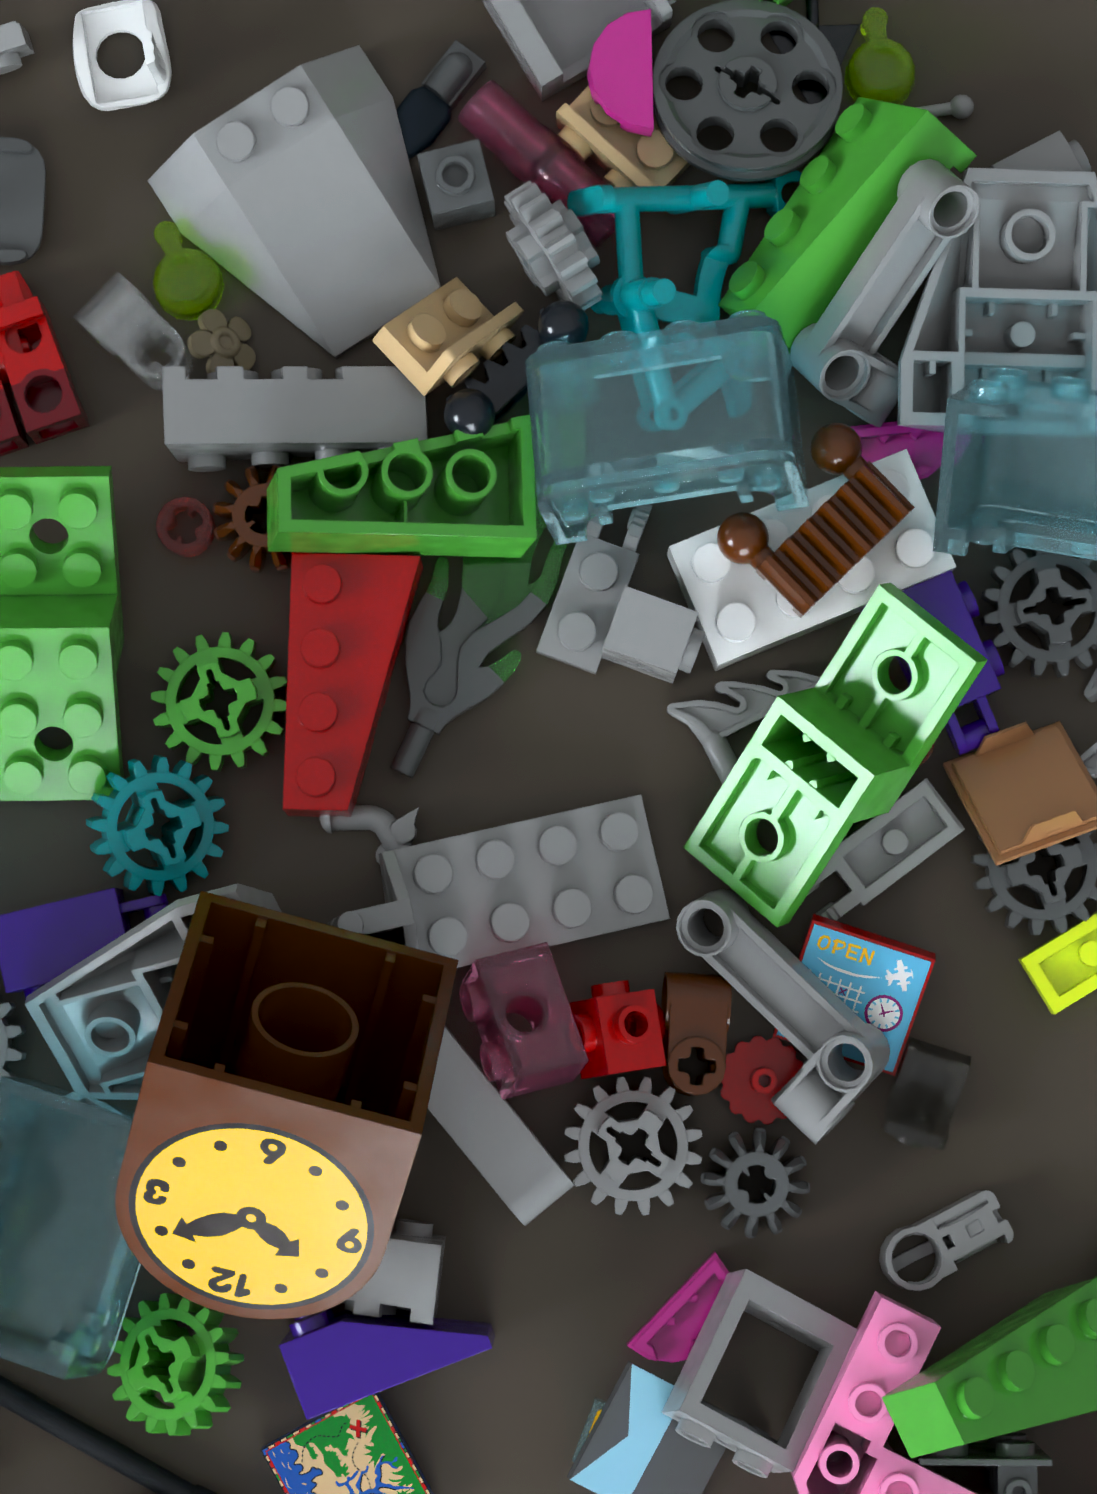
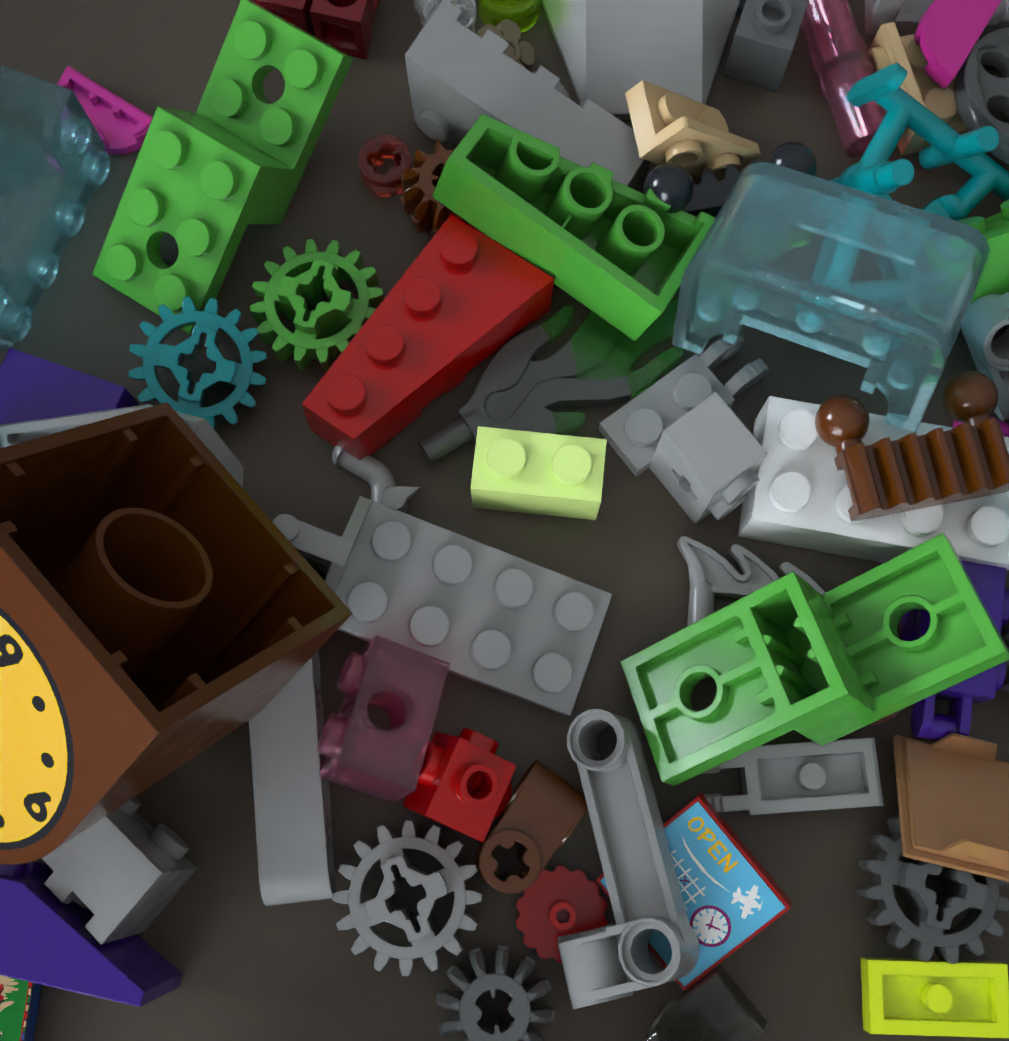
camera: 30 degrees right, 10 degrees down
(514, 732) = (538, 473): none -> yellowish green brick
(552, 246) = (819, 107): light grey gear -> none

